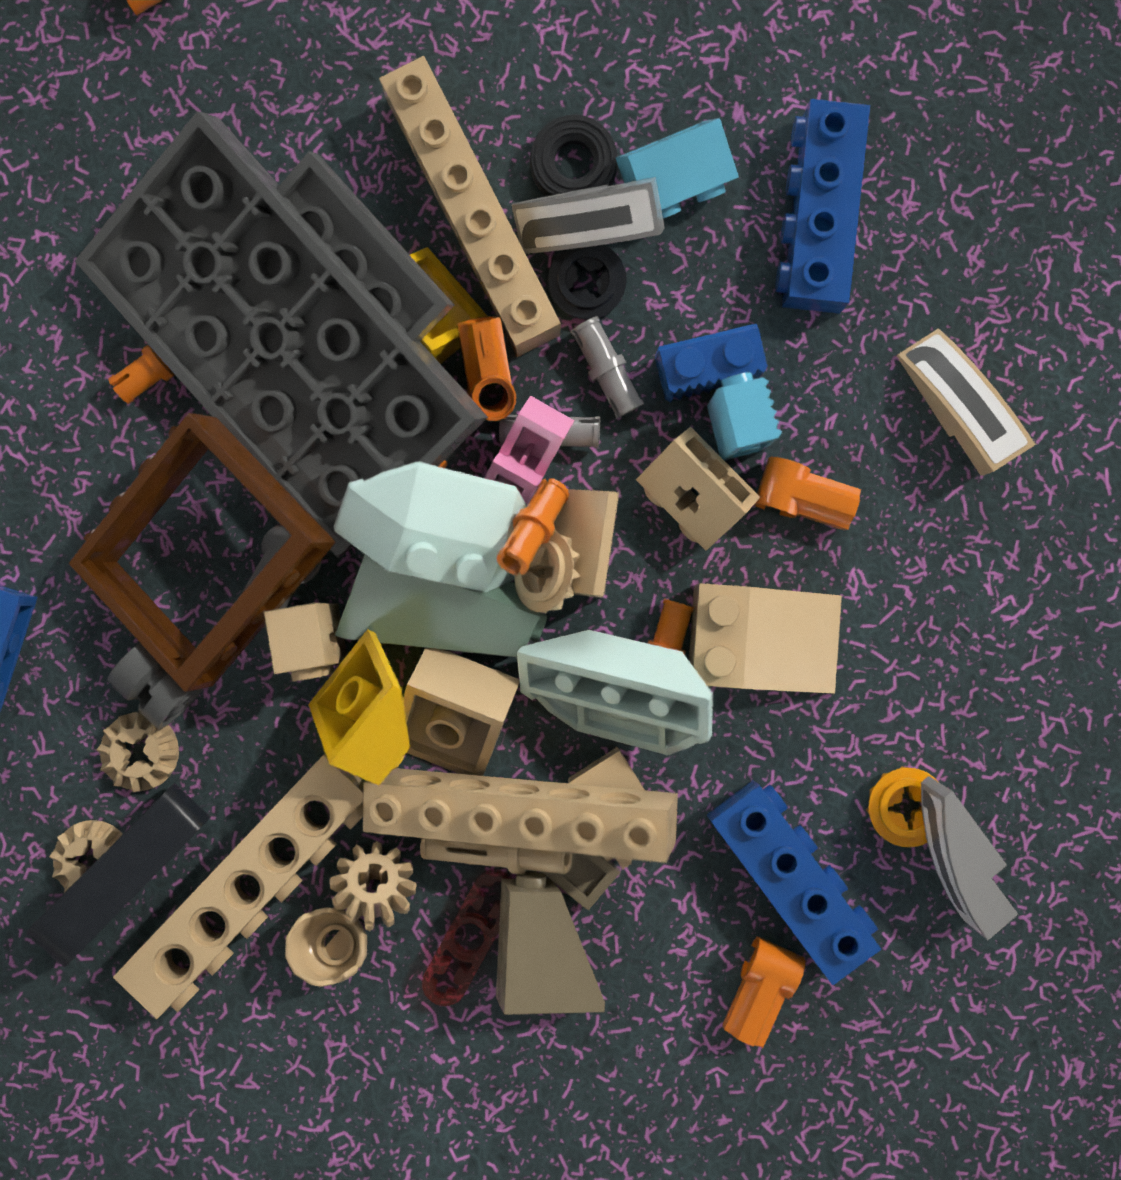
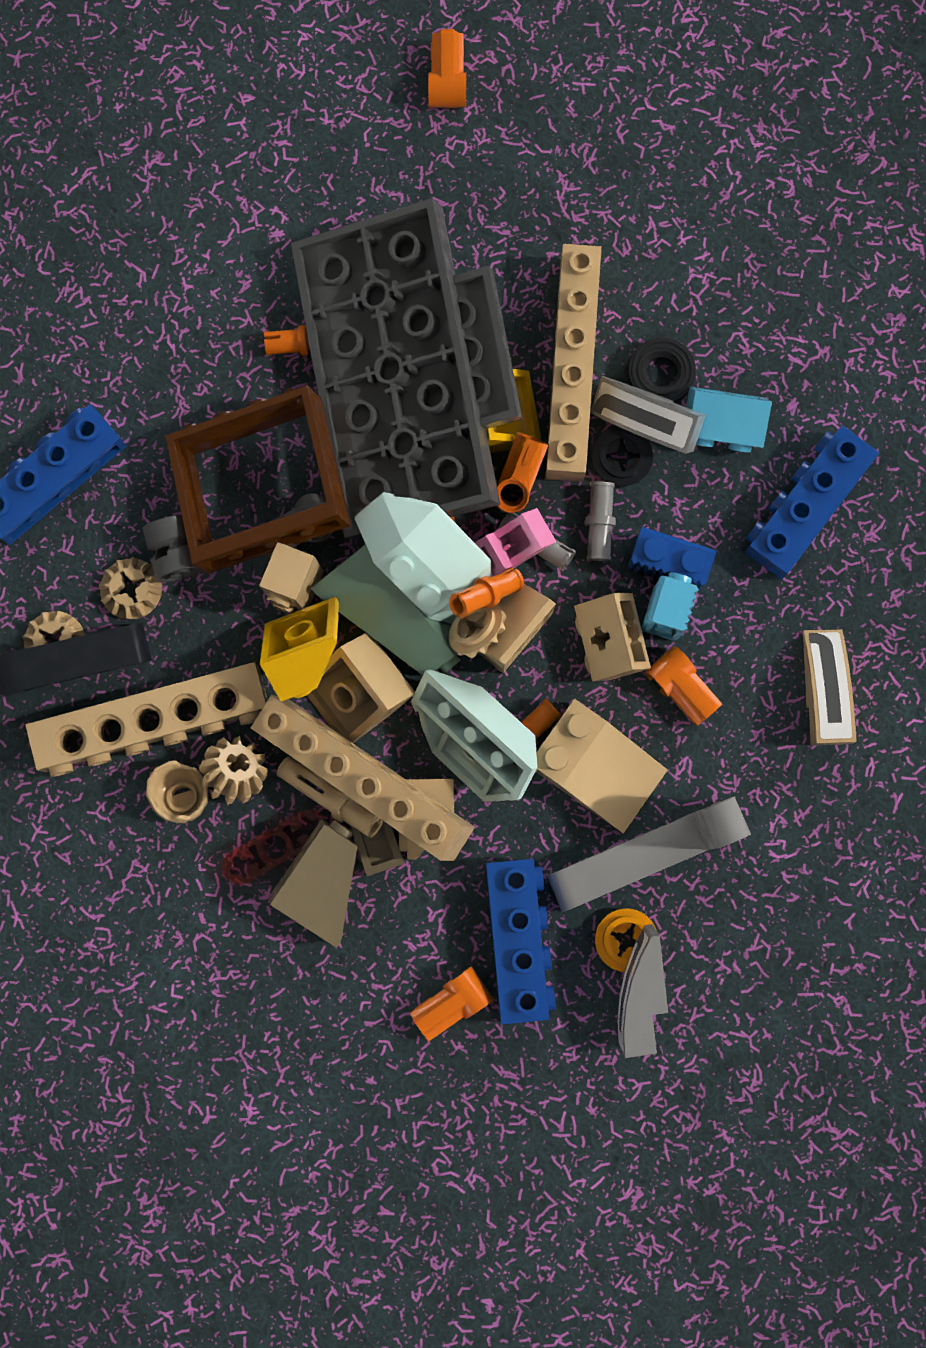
camera: 25 degrees right, 5 degrees down
(934, 630) = (649, 853): none -> light grey beam

